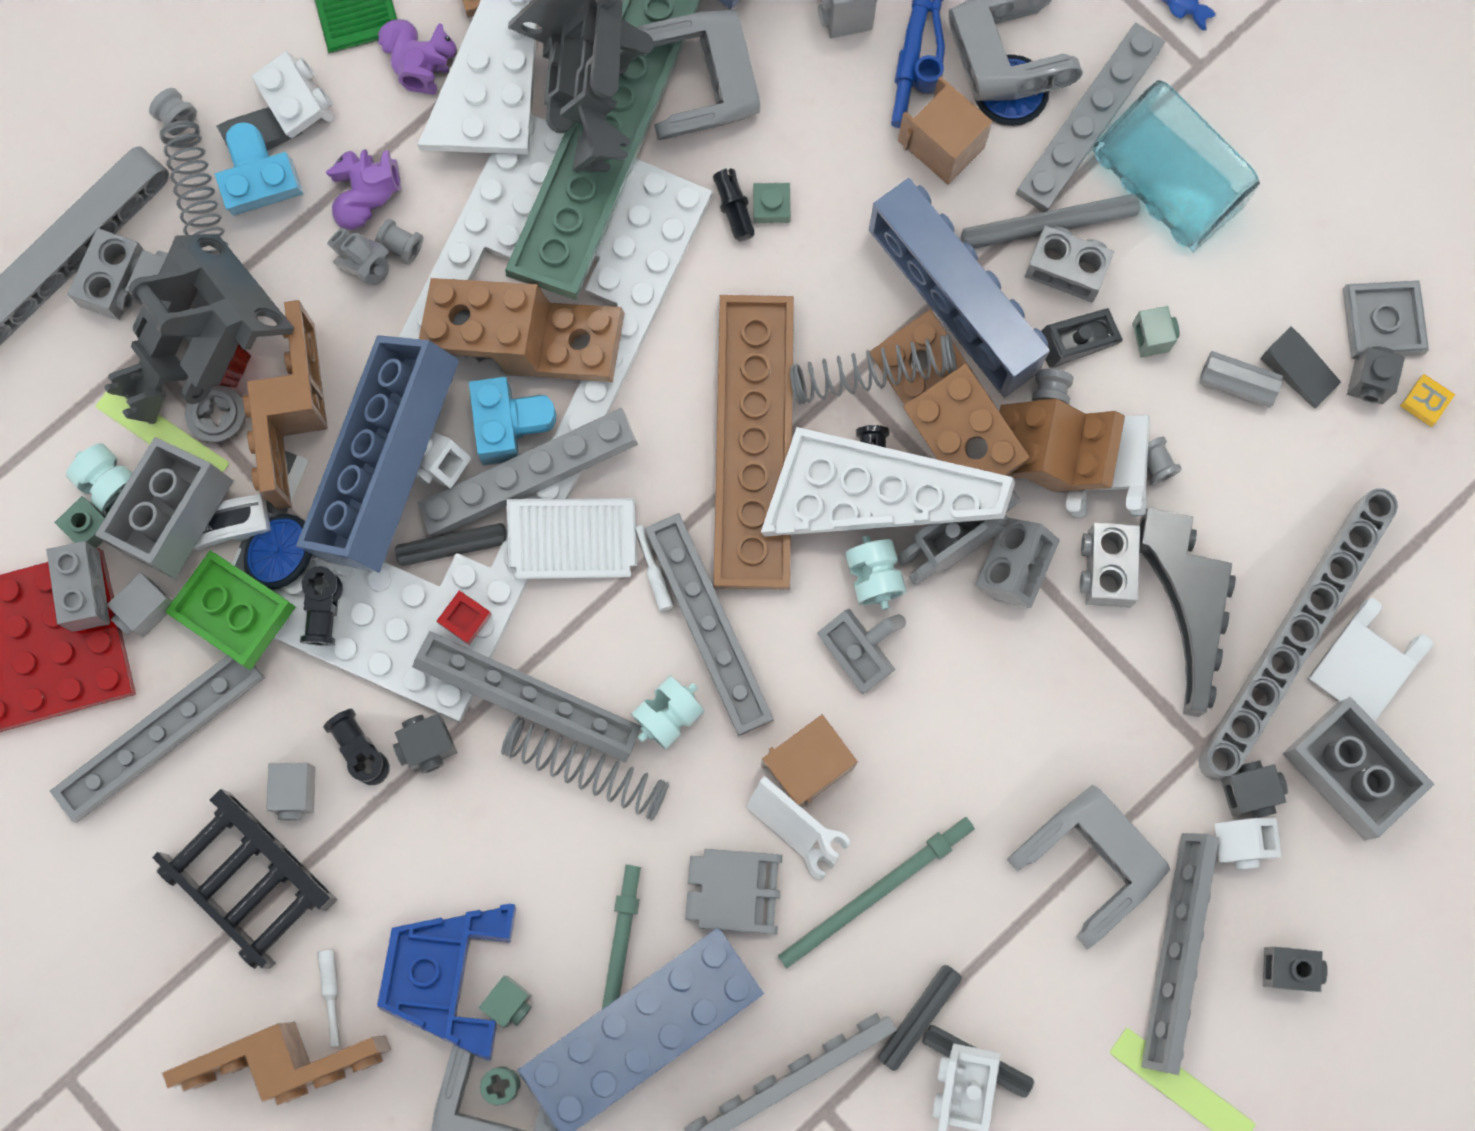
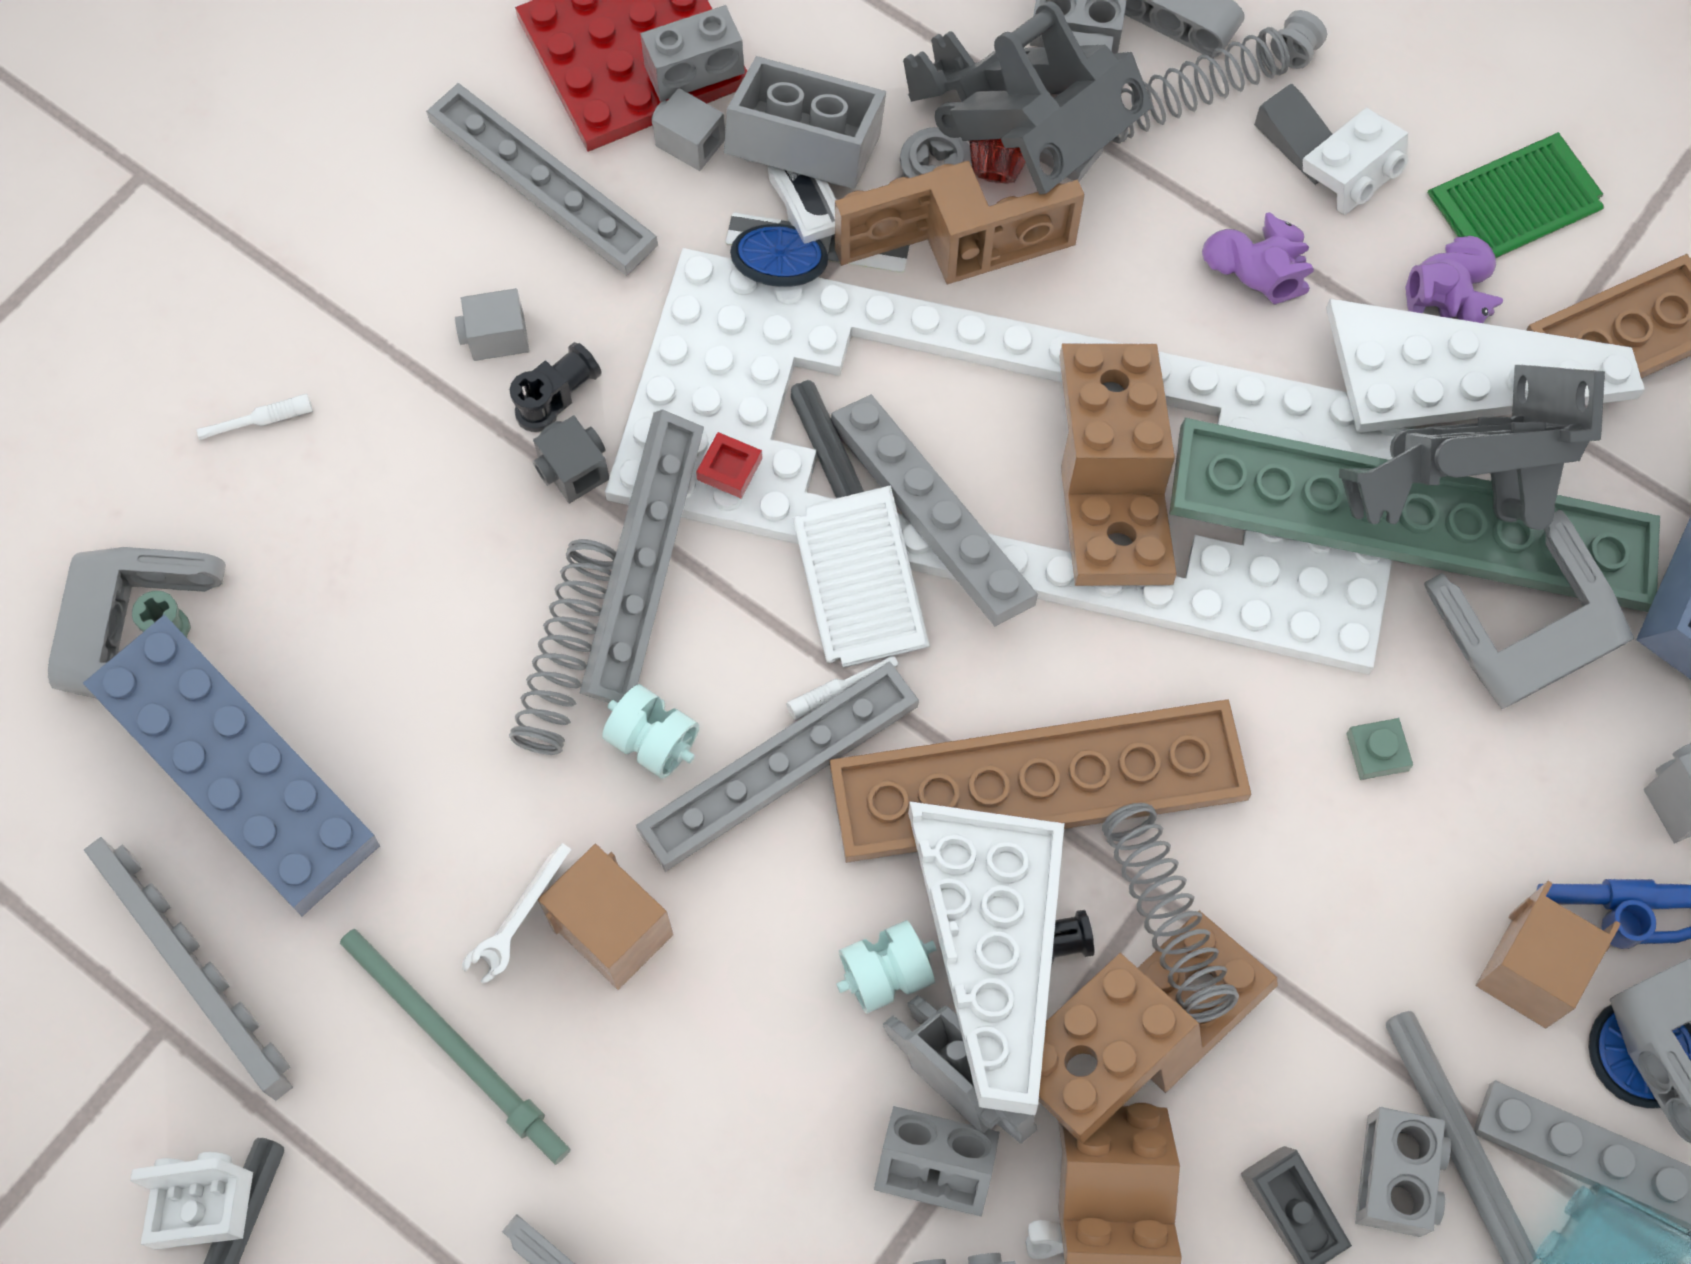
camera: 80 degrees right, 10 degrees down
(75, 515) = (777, 45): sand green plate -> none
(97, 473) = (836, 49): light aqua wheel -> none
(113, 407) = (897, 125): yellowish green sticker -> none
(230, 610) = (696, 216): bright green plate -> none
(256, 176) = (1240, 137): medium azure brick -> none
(277, 1063) = (163, 369): medium nougat bracket -> none
(283, 867) = (400, 336): black fence -> none
(320, 607) = (717, 304): black connector -> none
(360, 256) = (1167, 268): light grey hips -> none
(378, 452) = (912, 321): sand blue brick -> none
(399, 241) = (1201, 309): light grey bush -> none
(427, 973) = (287, 512): blue wing -> none
(442, 461) = (929, 399): white brick -> none
(503, 420) = (998, 466): medium azure brick -> none
(507, 1002) = (263, 609): sand green plate -> none
(626, 906) = (398, 730): sand green bar -> none
(733, 890) = (431, 857): light grey plate -> none
(734, 204) = (1361, 699): black axle -> none
(858, 649) = (779, 961): light grey plate -> none
(919, 1017) = (291, 1129): dark grey axle -> none
(958, 287) = (1309, 1019): sand blue brick -> none
(1052, 385) = (1205, 1176): light grey wheel -> none

